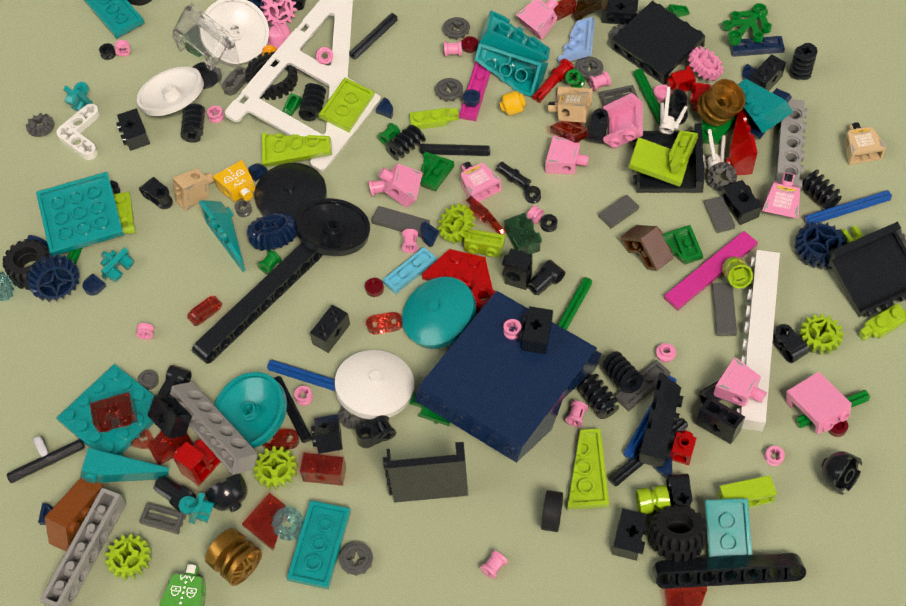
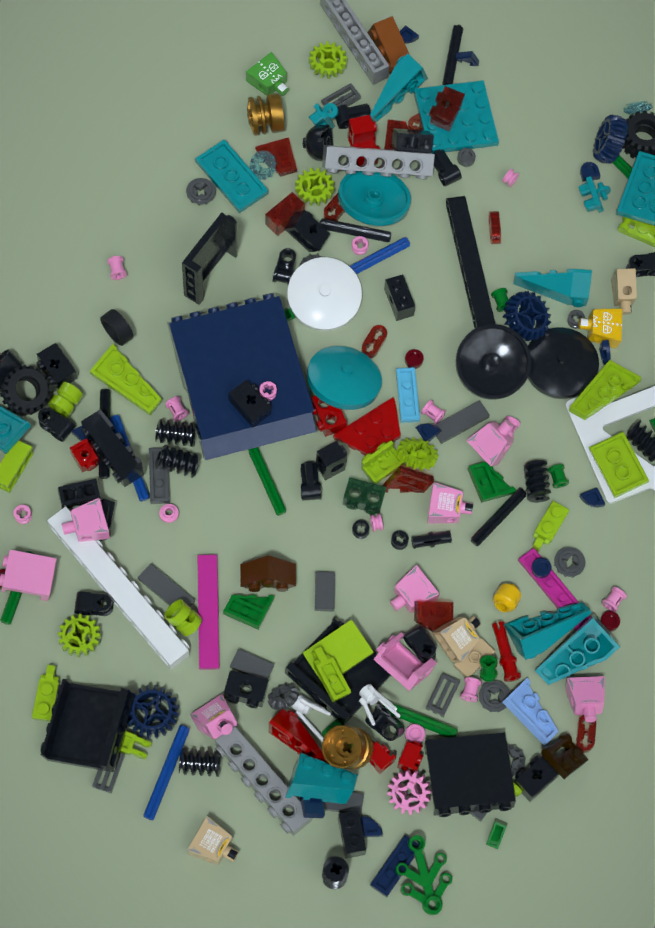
camera: 120 degrees right, 10 degrees up
(458, 23) = (645, 619): dark grey gear -> none

